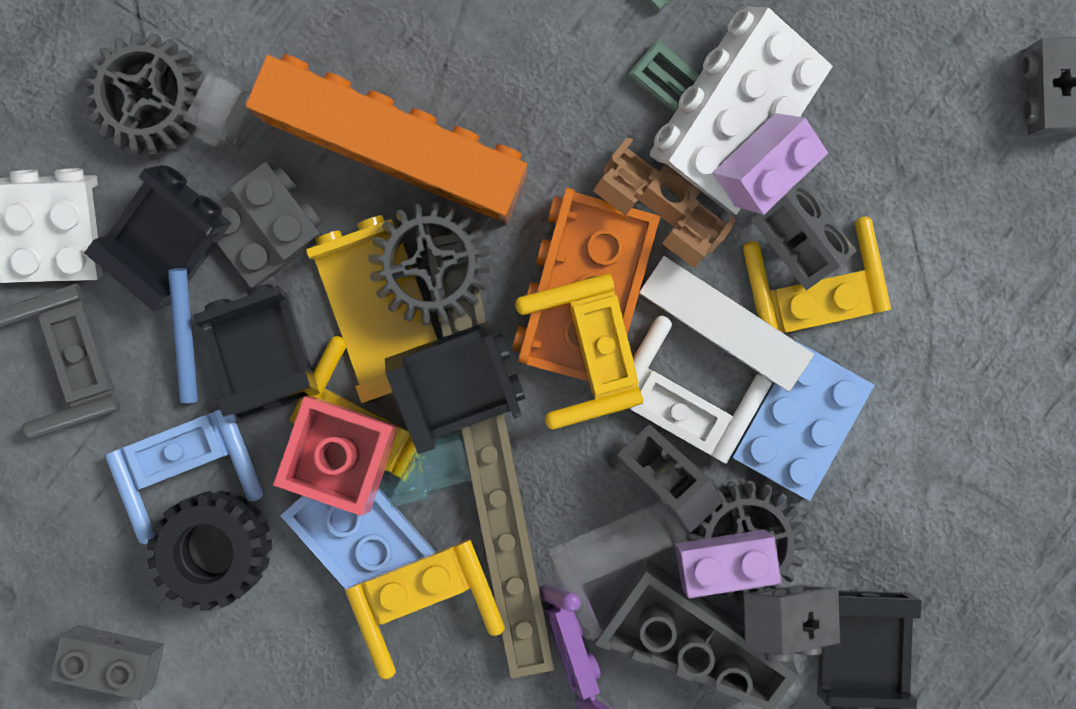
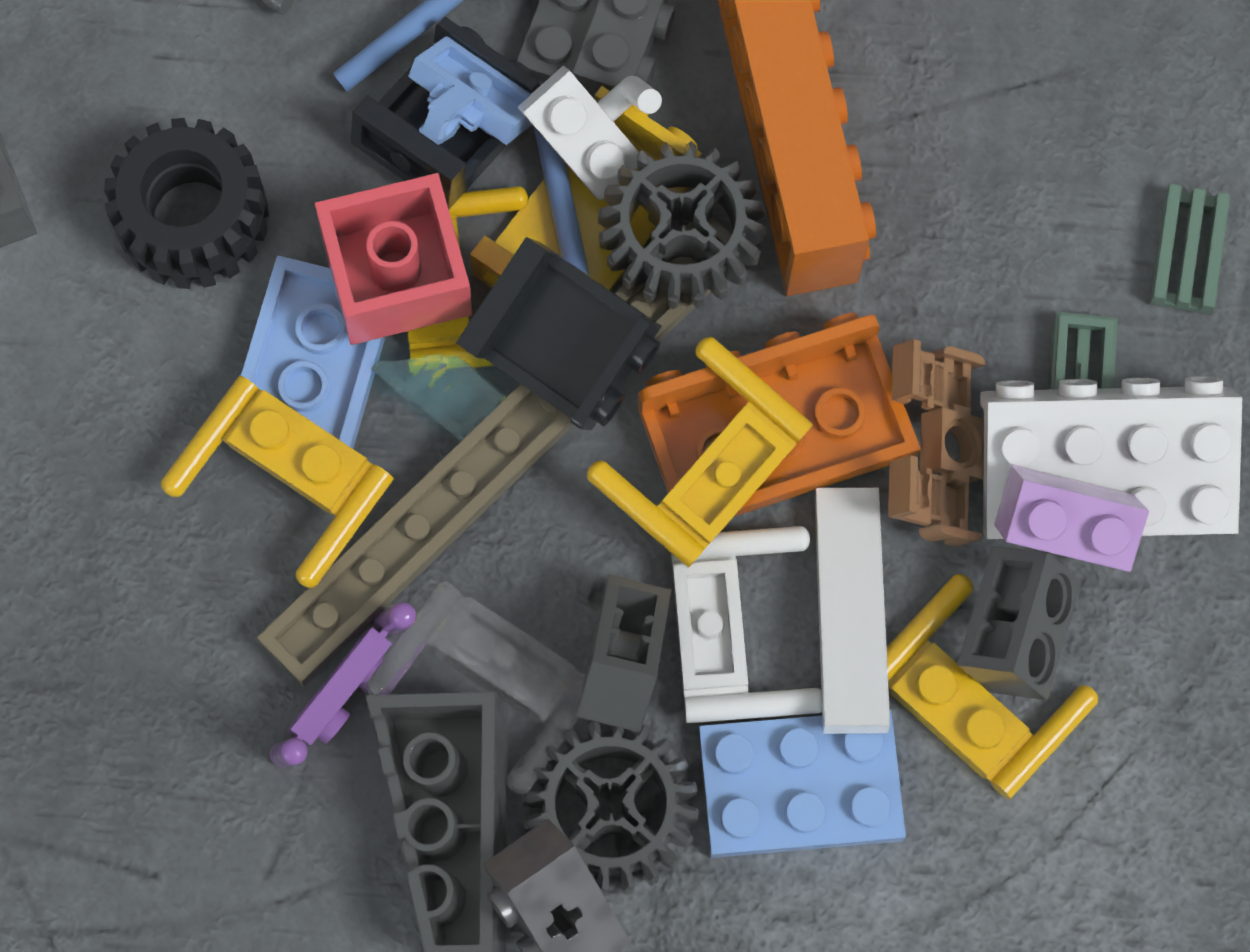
camera: 50 degrees right, 15 degrees down
(176, 453) = (270, 102): light blue plate -> none
(258, 334) = (467, 94): none -> light blue hinge
(329, 280) = (585, 130): none -> white plate
(353, 318) = (561, 204): none -> medium blue bar
(728, 563) = (570, 775): lavender brick -> none

